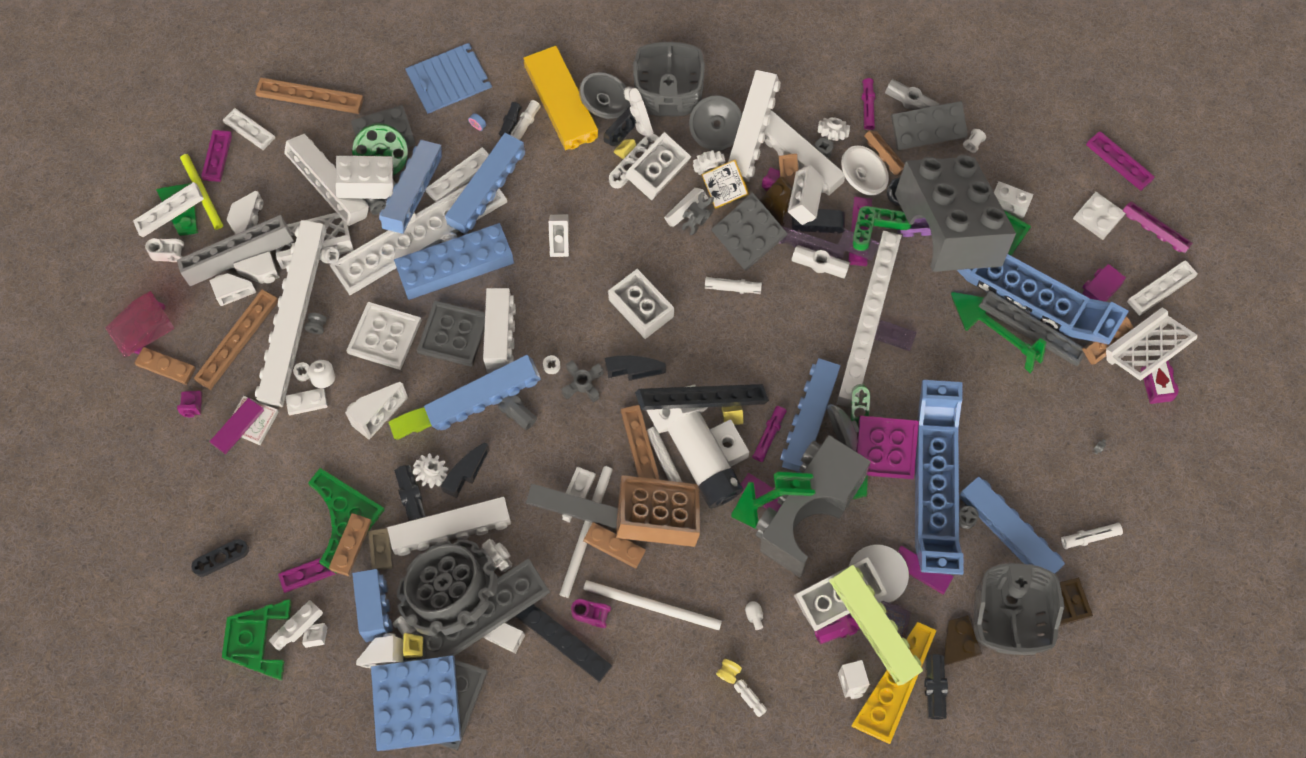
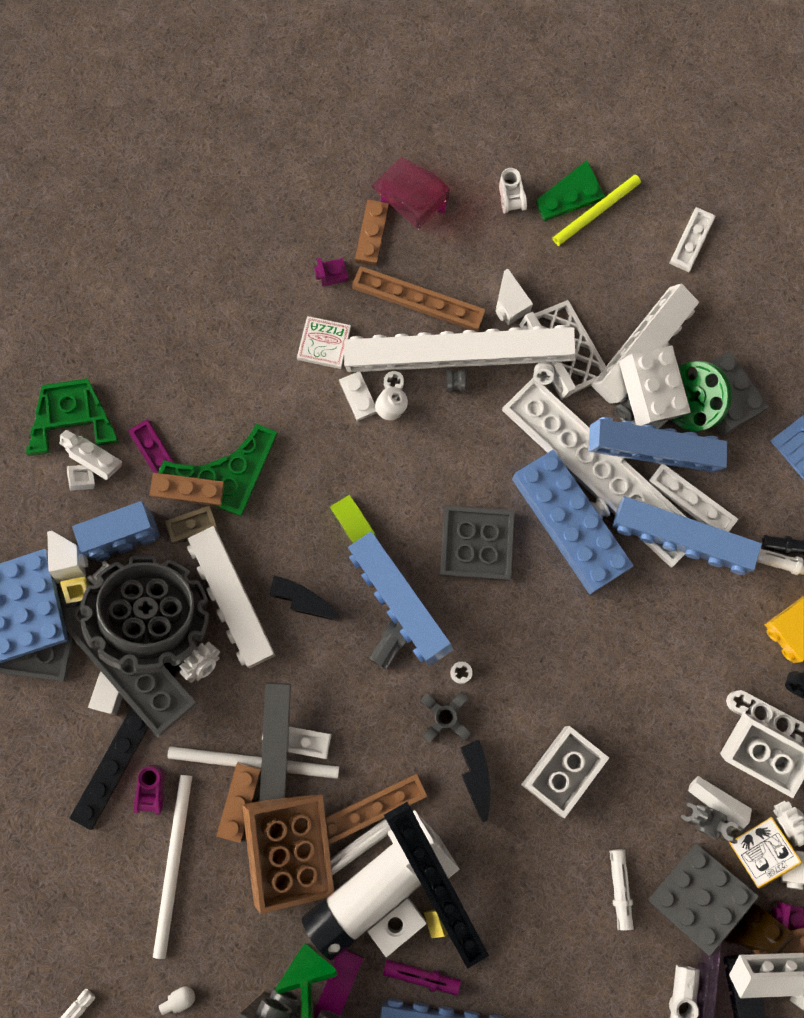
camera: 75 degrees right, 10 degrees up
(168, 209) = (561, 180): white plate -> none
(208, 569) = (149, 348): black beam -> none
(216, 155) = (646, 213): magenta plate -> none
(231, 288) = (478, 273): white slope -> none
(236, 426) = (310, 328): magenta tile -> none
(241, 246) = (525, 265): light grey brick -> none
(244, 212) = (573, 264): white slope -> none
(309, 95) = (755, 296): medium nougat plate -> none
(375, 409) = (350, 472): white slope -> none
(384, 335) = (457, 462): white plate -> none
(409, 493) = (261, 542): black piece -> none
(430, 470) = (288, 565): white gear -> none
(477, 121) = (773, 504): medium blue tile -> none
(498, 328) = (488, 597): white brick -> none
(559, 235) = (639, 643): white slope -> none
(625, 148) = (786, 702): light yellow slope -> none
(729, 671) = (99, 980): light yellow wheel -> none

